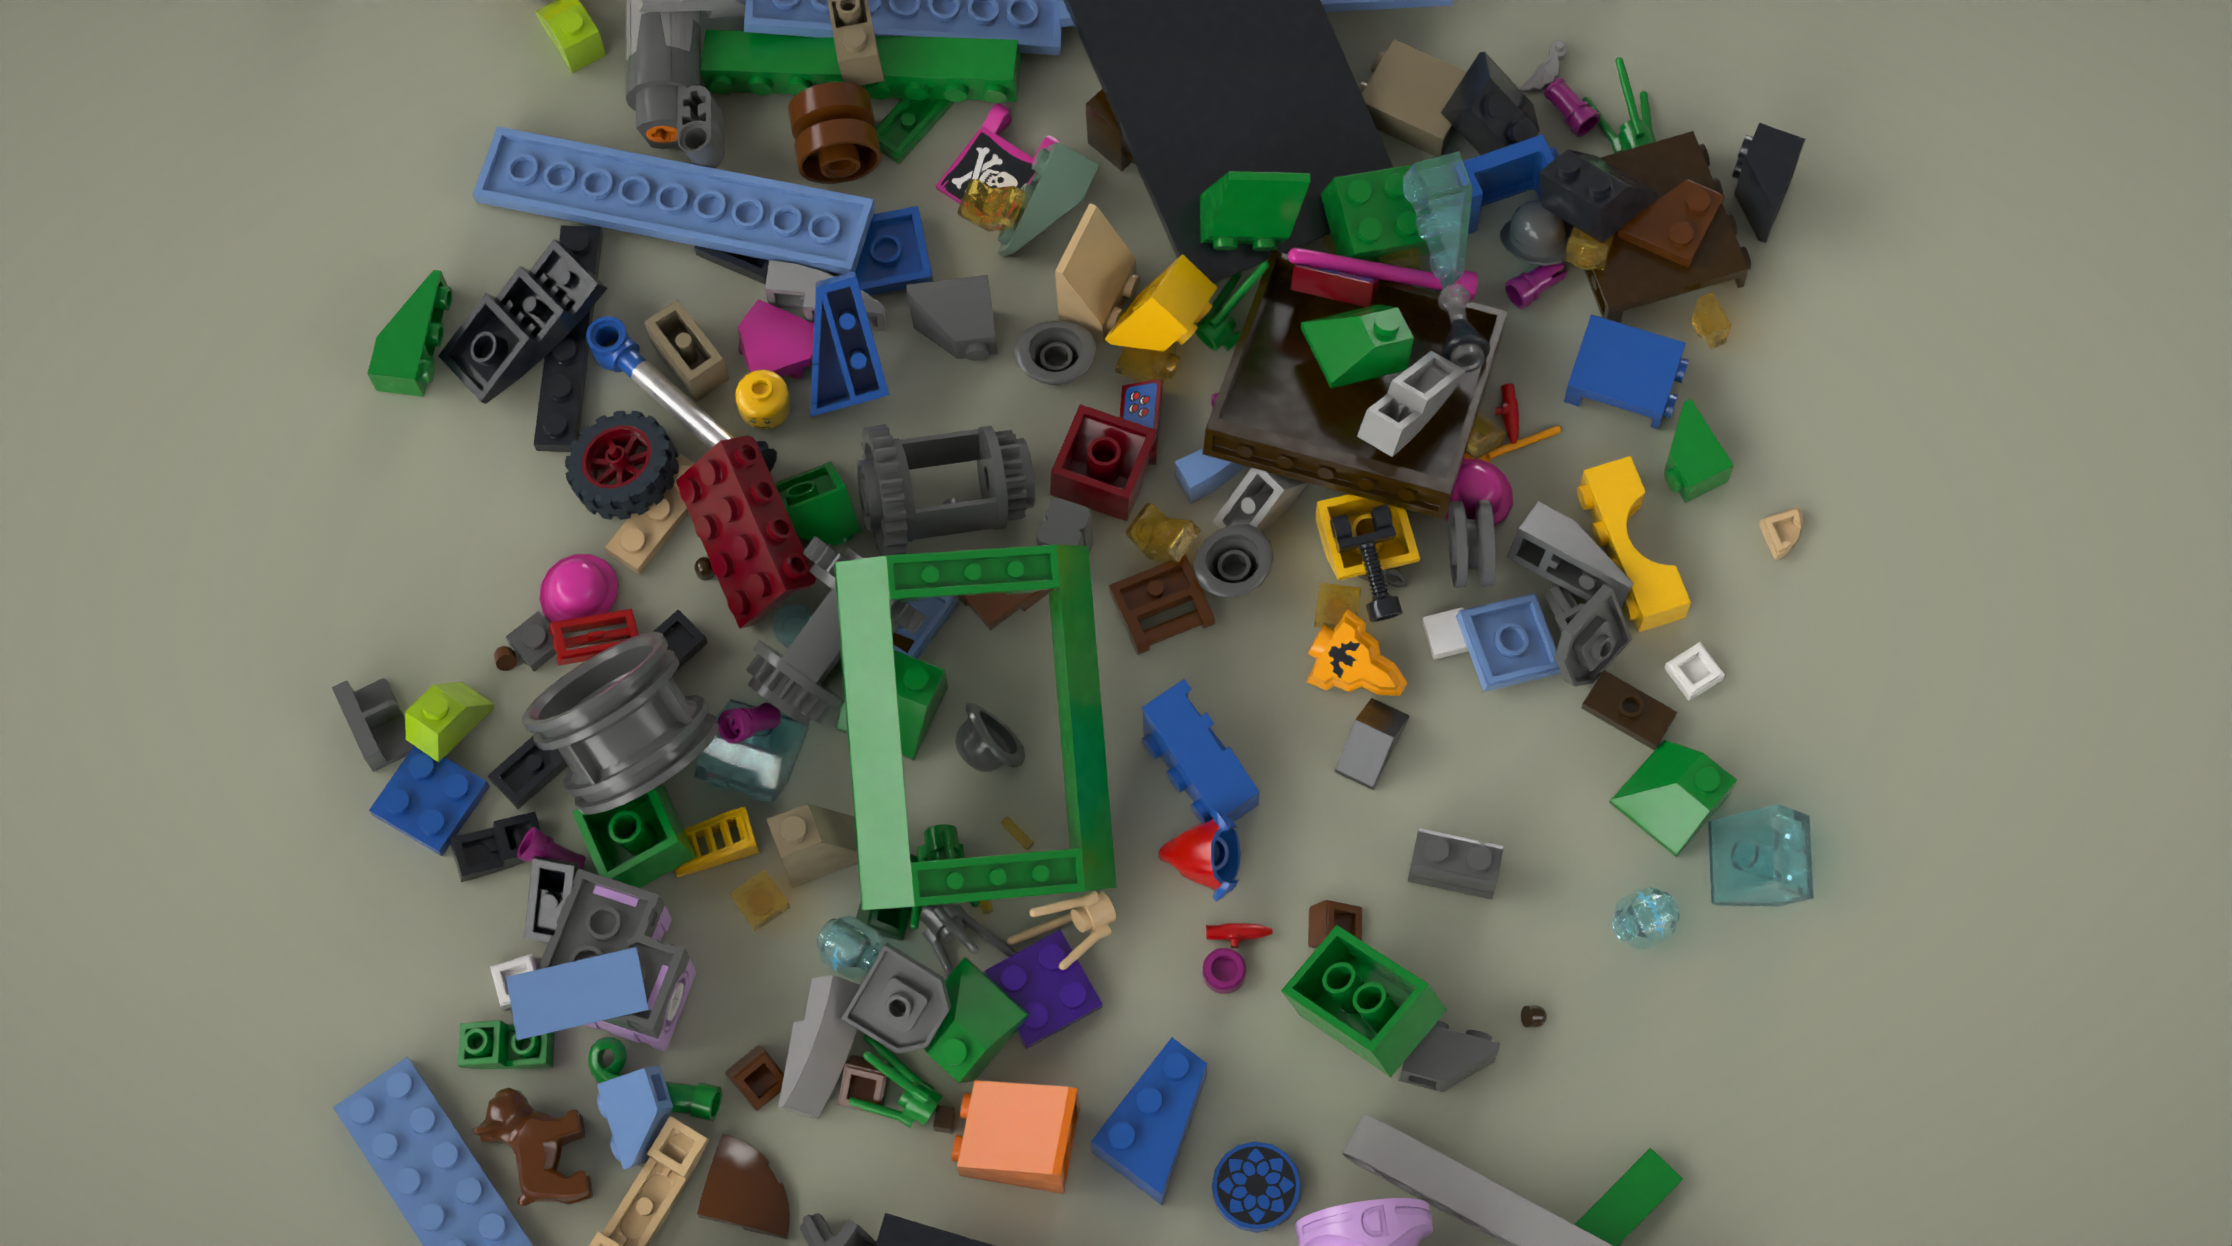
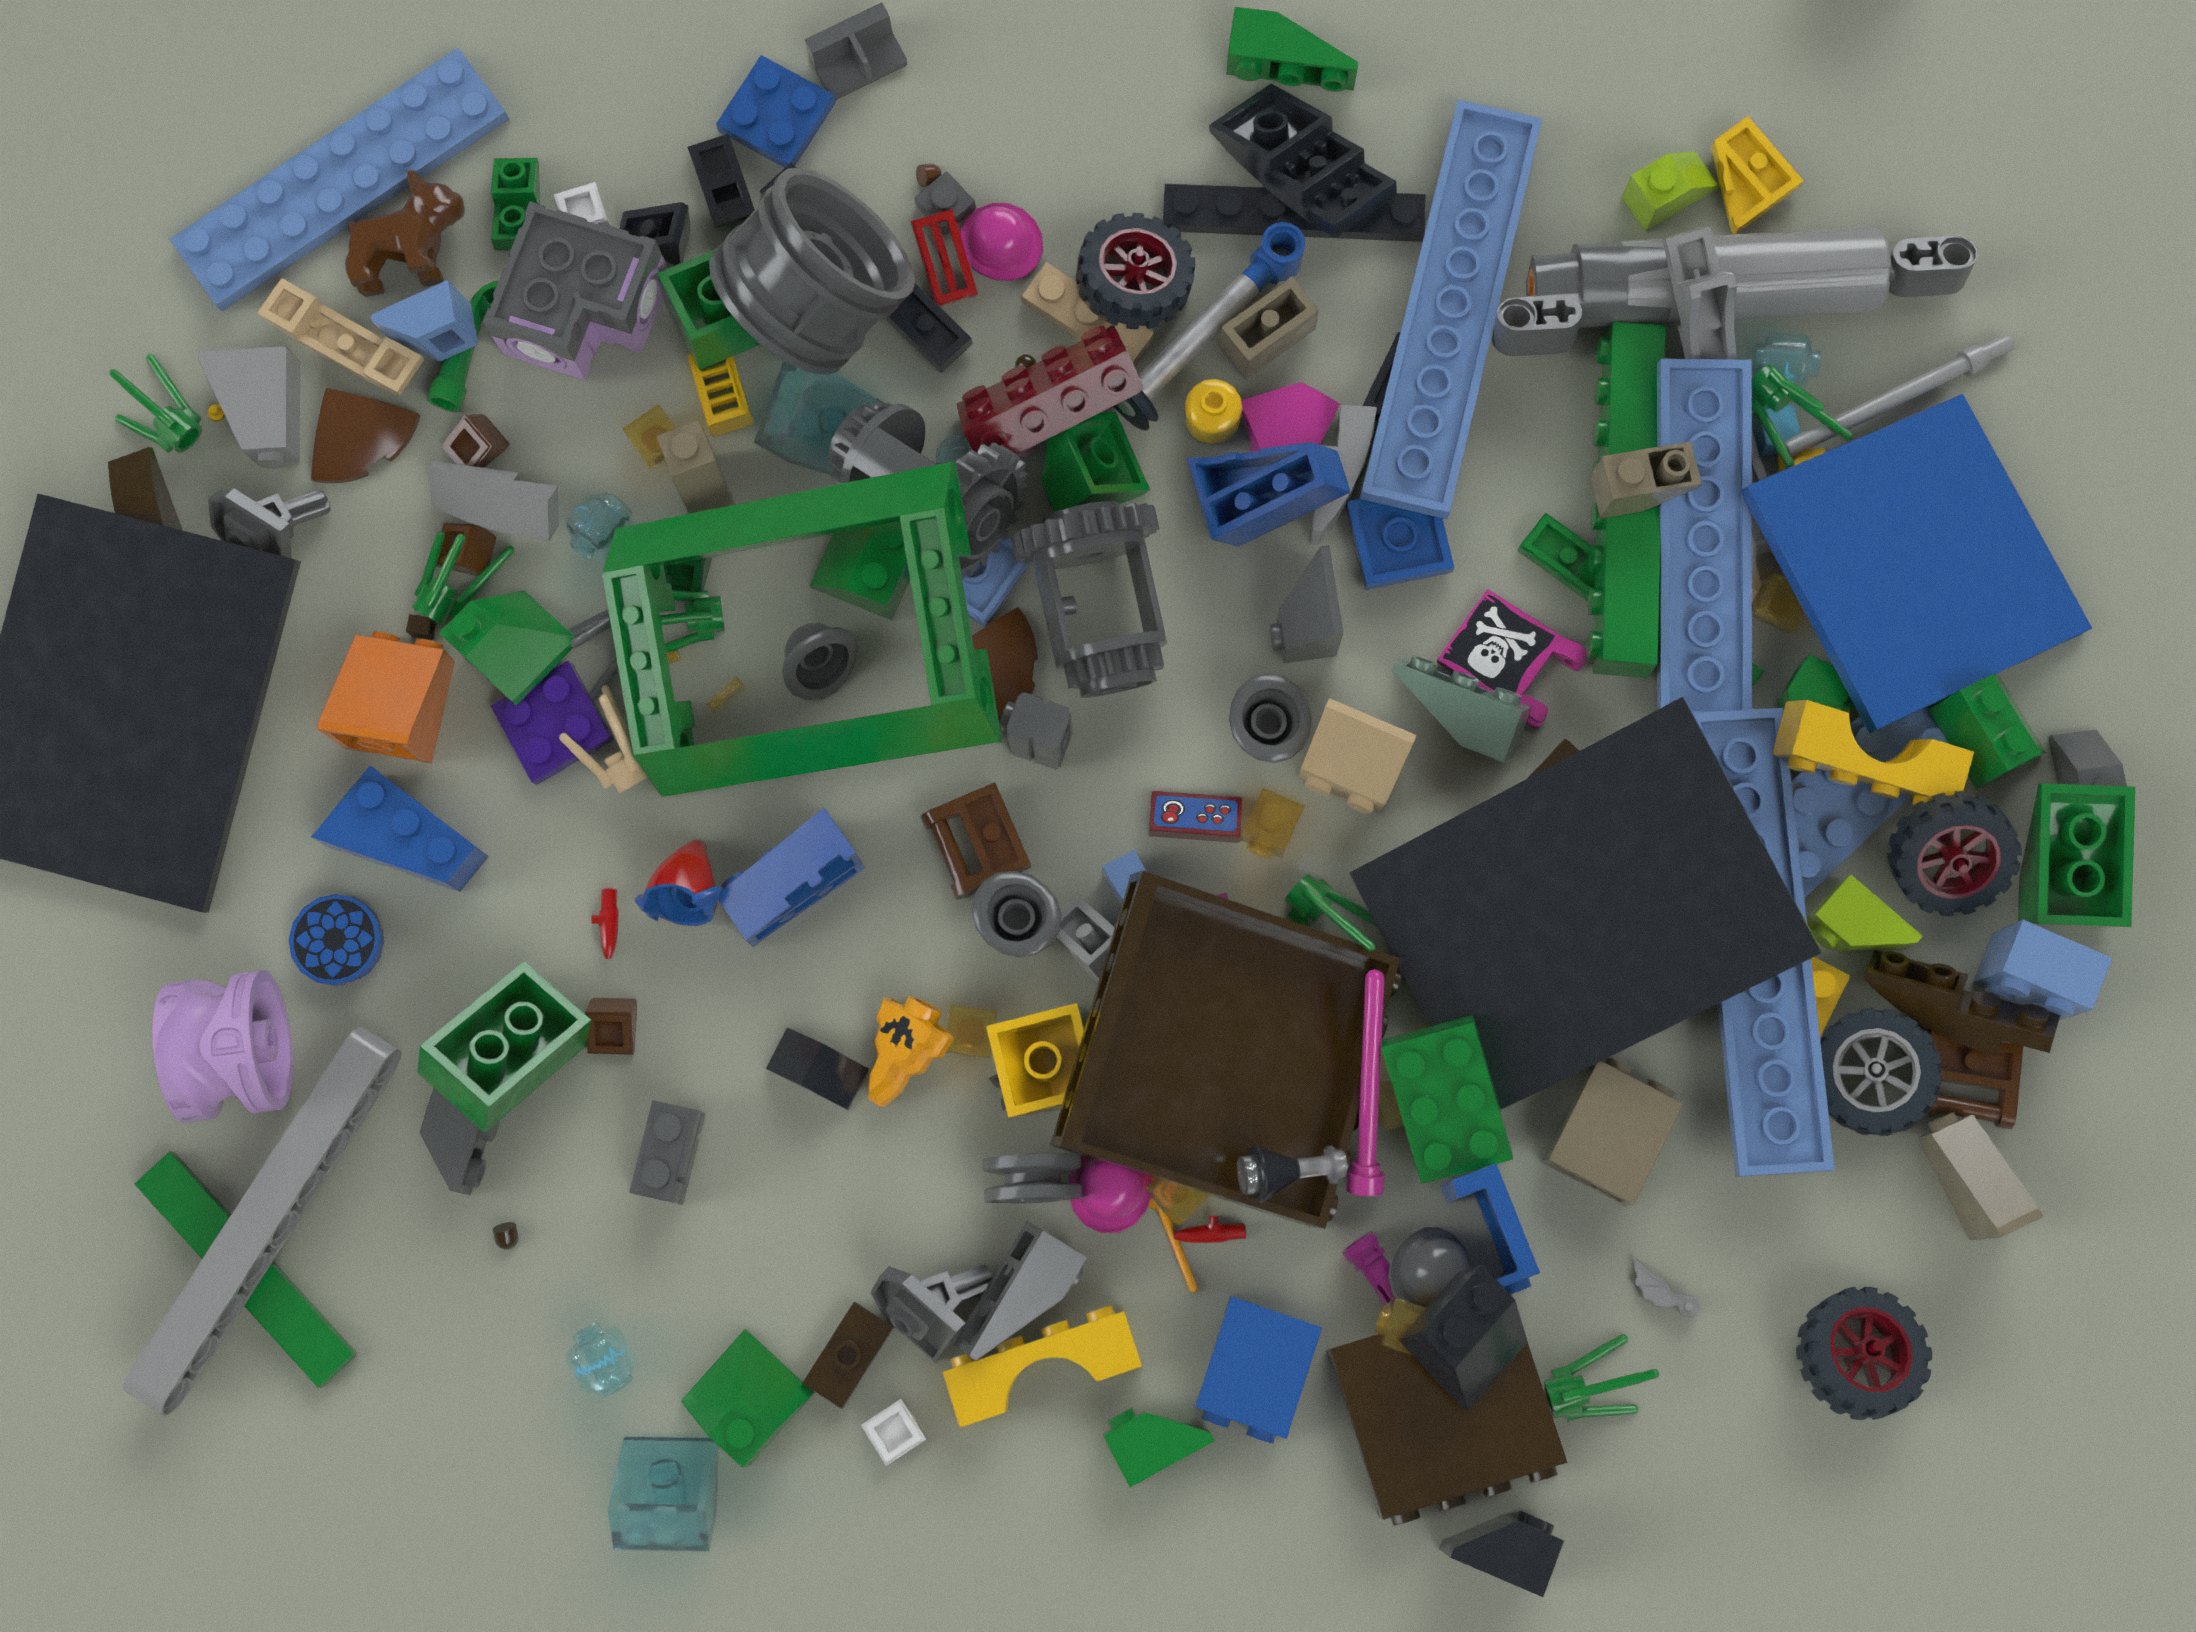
camera: 90 degrees right, 10 degrees up
(444, 717) = (855, 117): lime slope -> none
(539, 844) = (706, 217): magenta pin -> none
(577, 993) = (523, 247): medium blue sticker -> none
(745, 722) = (823, 400): magenta pin -> none
(834, 133) = (1547, 468): reddish brown wheel -> none
(899, 1002) = (521, 568): dark grey piece -> none
(991, 207) = (1453, 644): clear yellow bracket -> none
(1102, 462) = (1137, 772): dark red slope -> none
(1161, 536) = (1054, 838): clear yellow bracket -> none
(1165, 309) = (1317, 836): yellow slope -> none
(1224, 970) = (567, 908): magenta tile -> none
(1251, 209) = (1429, 925): green slope -> none
(1334, 285) = (1345, 1031): dark red slope -> none
(1360, 344) = (1266, 1048): green slope -> none
(1383, 604) = (951, 1075): black bar -> none
(1410, 403) = (1181, 1105): light grey slope -> none
(1442, 206) = (1440, 1150): clear light blue slope -> none
(1444, 634) = (942, 1154): white tile -> none
(1490, 108) = (1591, 1222): black slope -> none
(1509, 642) = (927, 1221): medium blue tile -> none
(1577, 113) = (1598, 1326): magenta pin -> none
(1675, 222) = (1439, 1435): reddish brown wing -> none
(1710, 321) = (1324, 1471): clear yellow plate -> none
(1782, 531) = (1063, 1545): tan tile -> none

